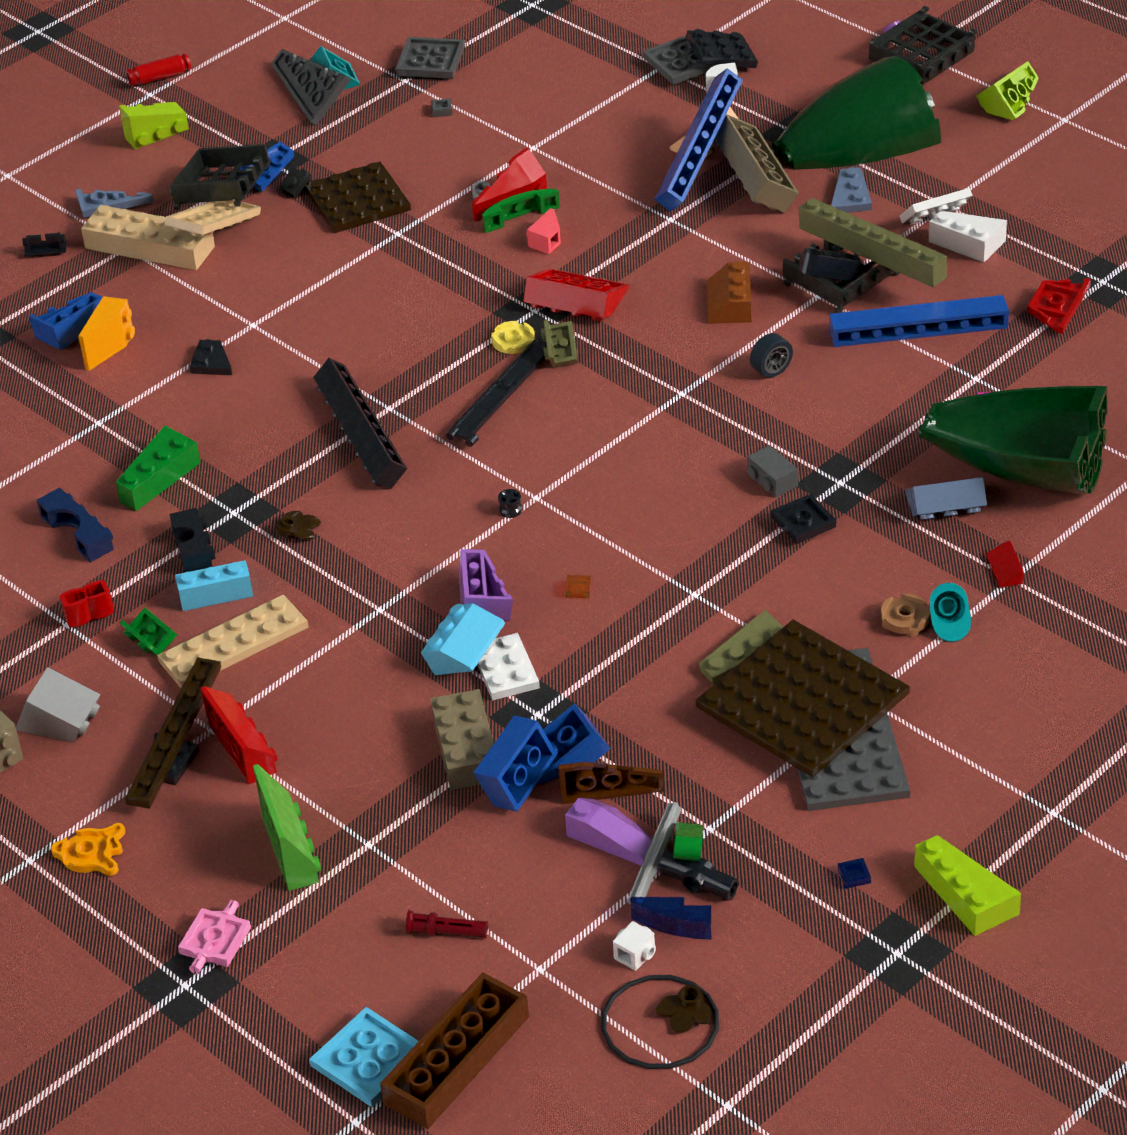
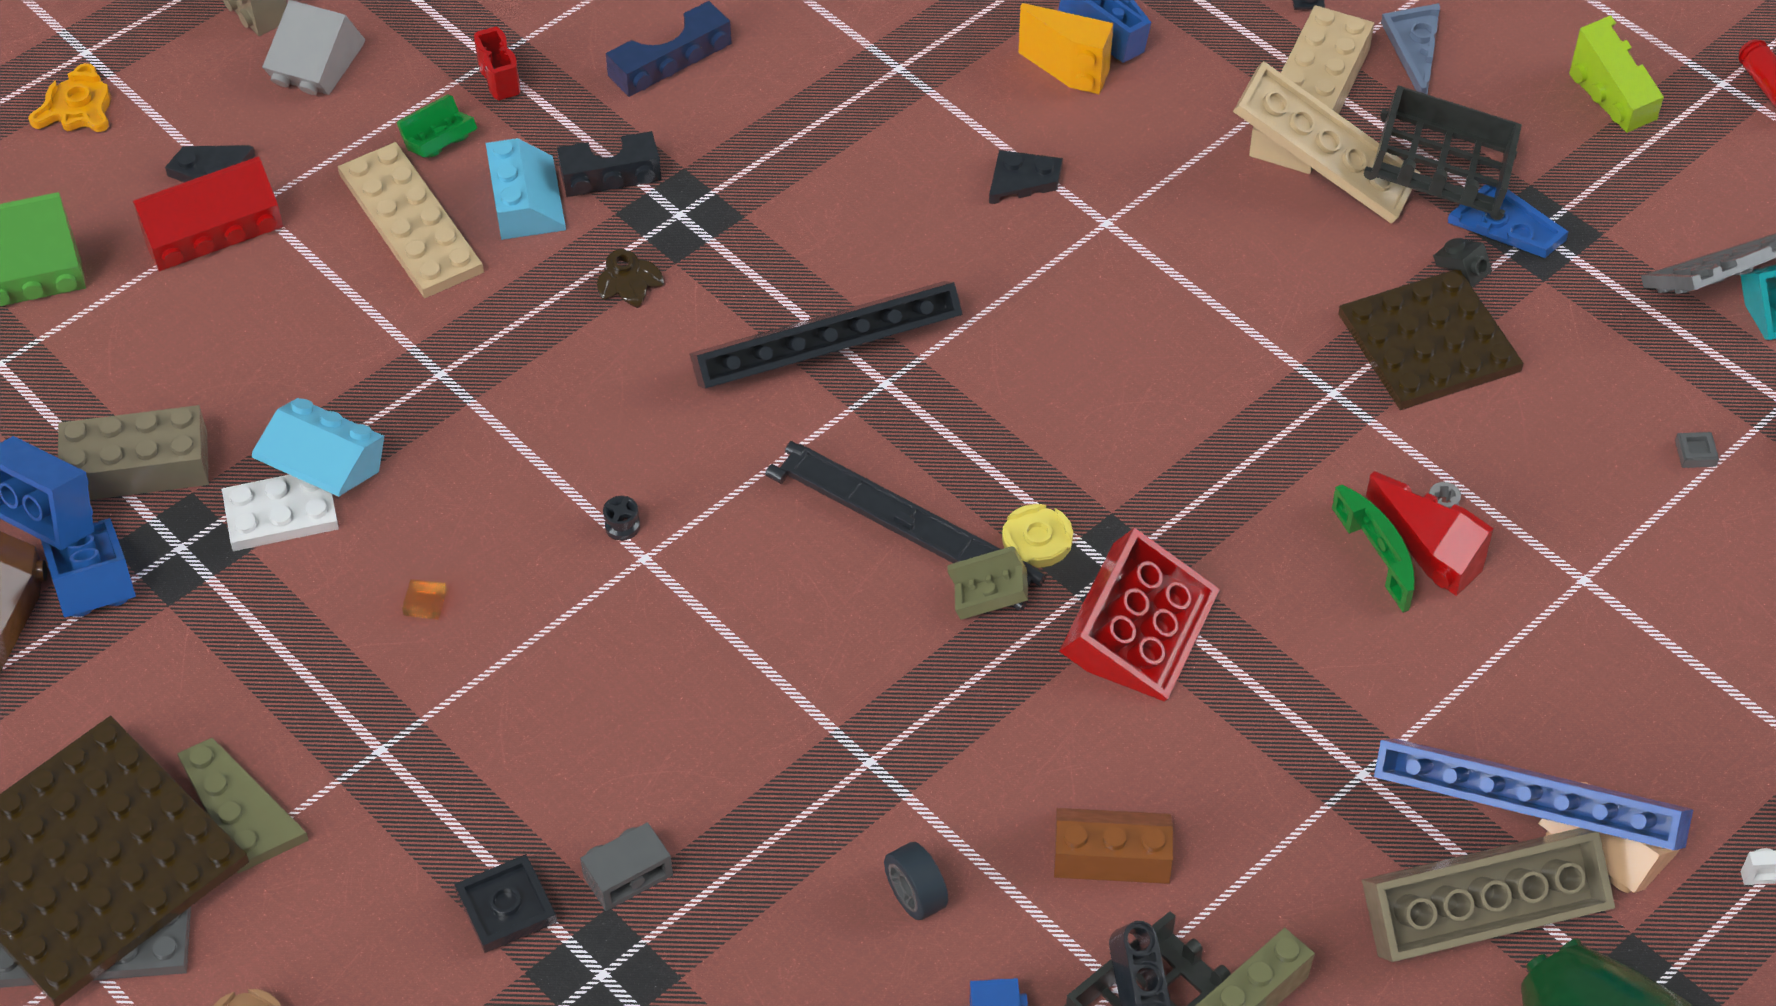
camera: 90 degrees right, 10 degrees up
(157, 467) = (770, 122): green wedge -> none
(172, 734) = (223, 152): dark brown tile -> none
(481, 585) = (428, 471): medium lavender wedge -> none
(544, 233) = (1309, 582): coral slope -> none

